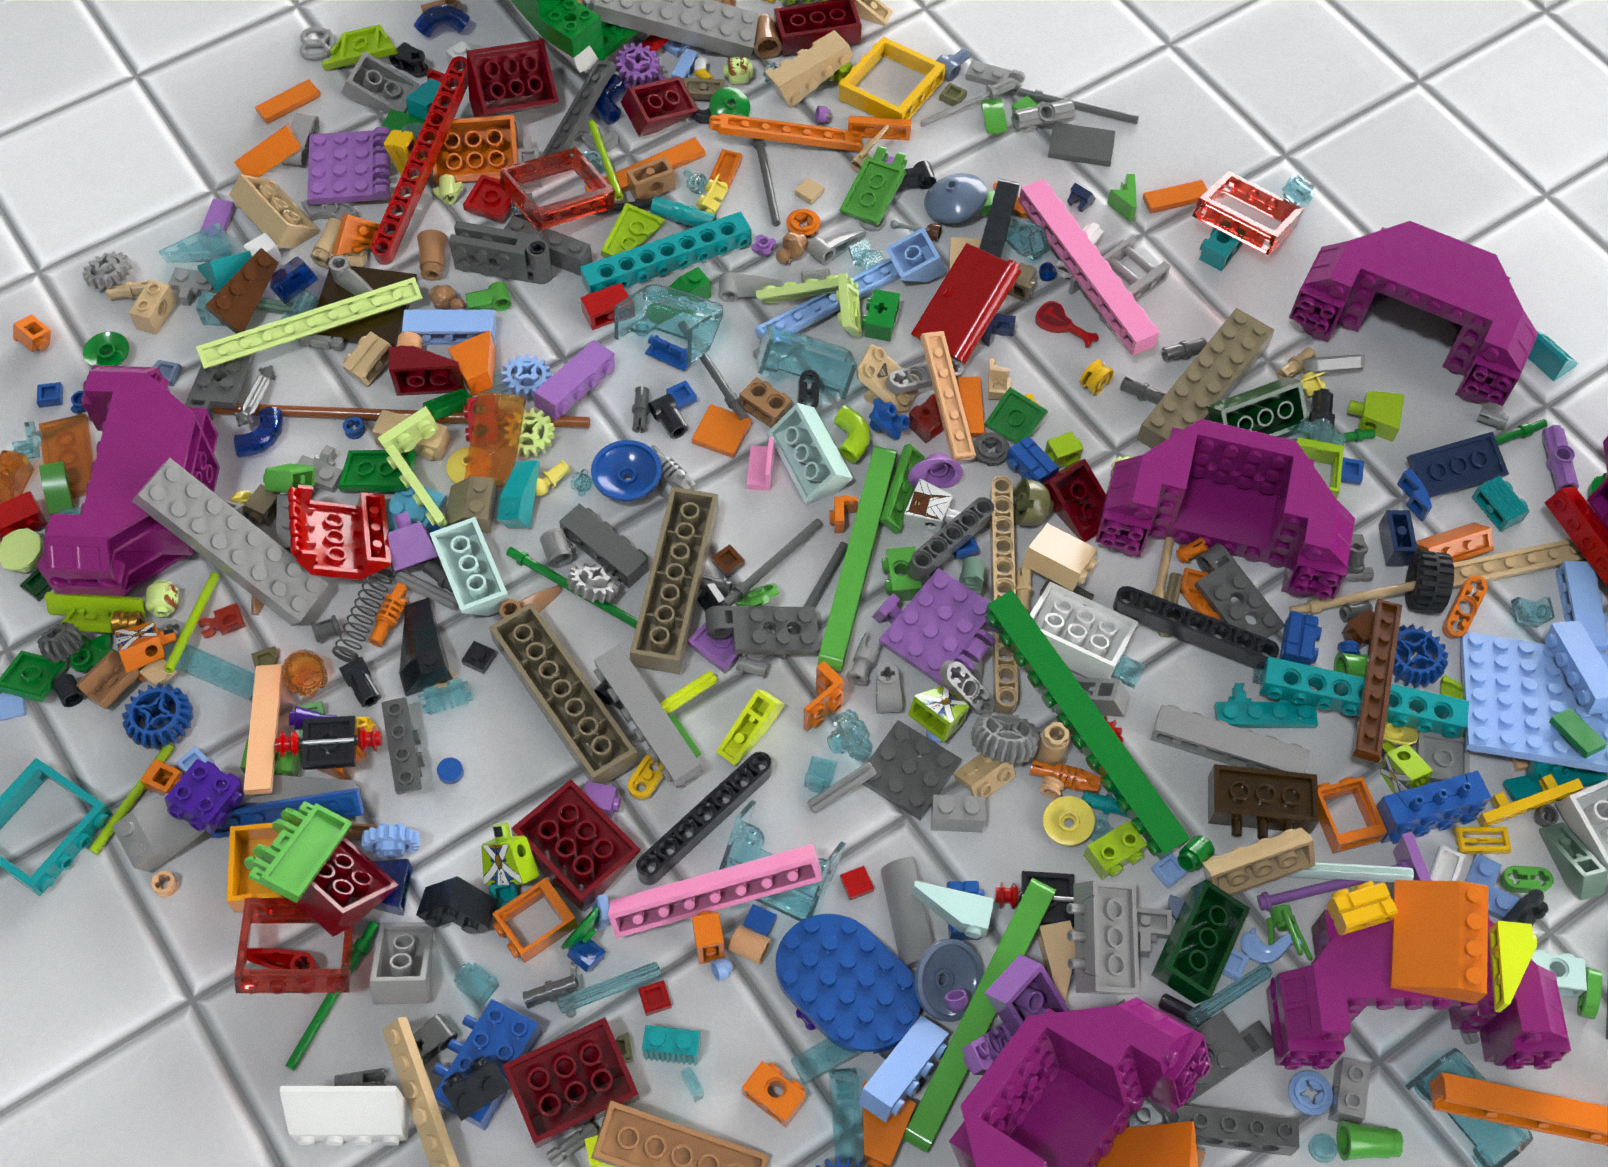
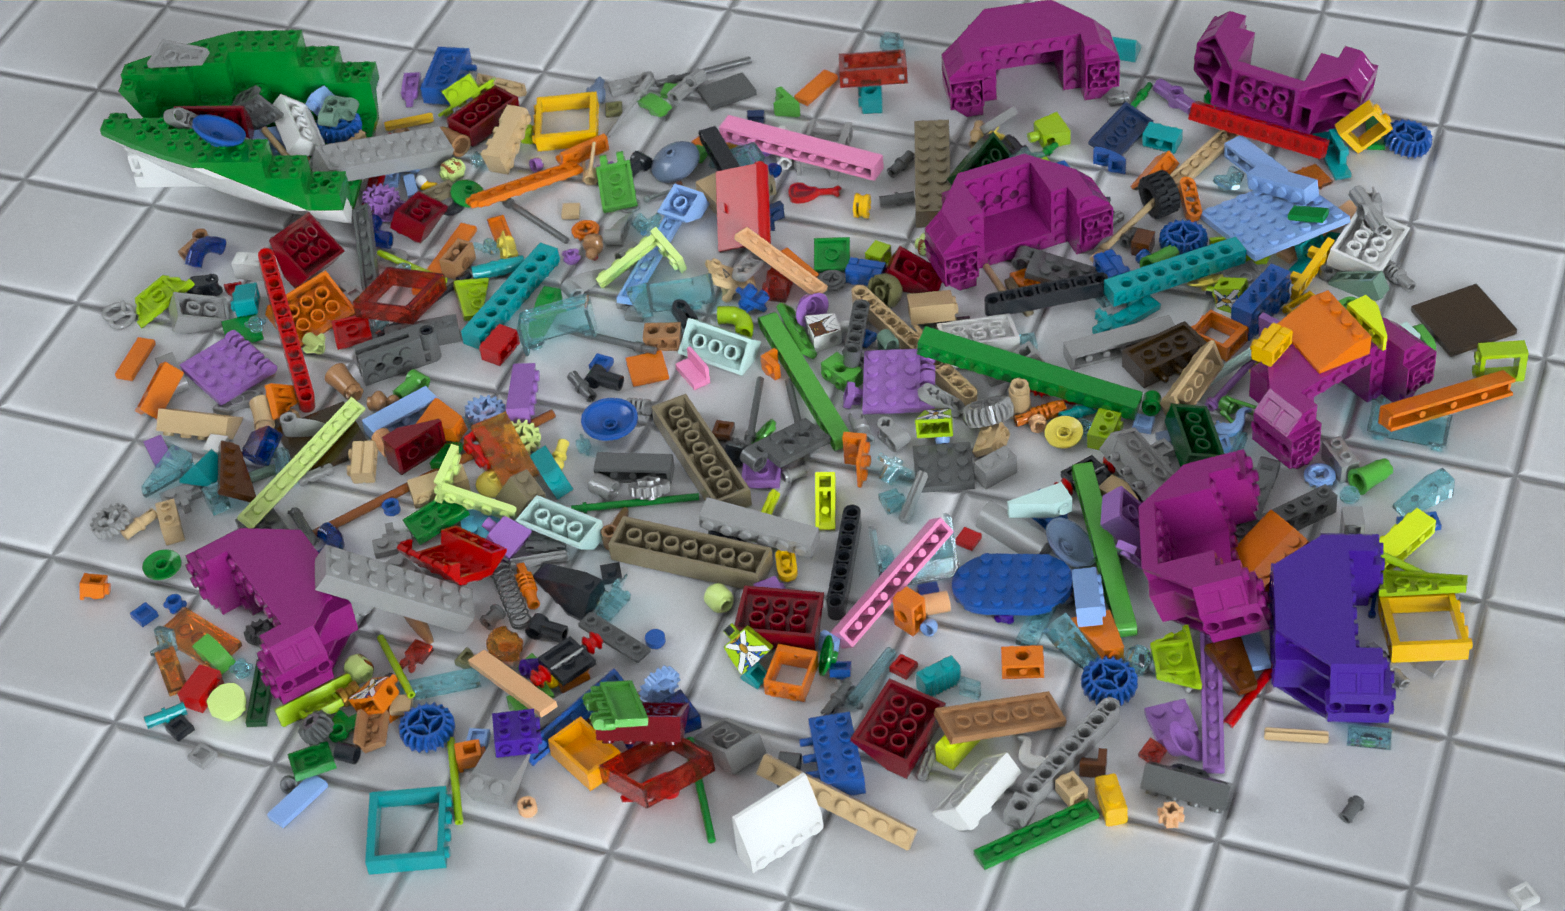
camera: 30 degrees left, 15 degrees down
(289, 475) = (382, 550): bright green brick -> none
(399, 147) = (265, 335): yellow brick -> none
(458, 903) = (733, 689): black brick -> none
(475, 982) = (786, 725): clear light blue window -> none
(475, 1086) = (846, 756): black bracket -> none
(544, 770) = (719, 598): none -> yellowish green head
(667, 352) = (561, 347): blue hinge -> none
(881, 315) = (690, 248): green brick -> none
(957, 1000) = (1085, 549): medium lavender hinge -> none
(997, 380) = (799, 244): tan slope -> none
(1191, 550) = (1006, 260): orange pin -> none
(1377, 681) = (1176, 254): reddish brown tile -> none
(1397, 537) = (1120, 185): dark blue brick -> none

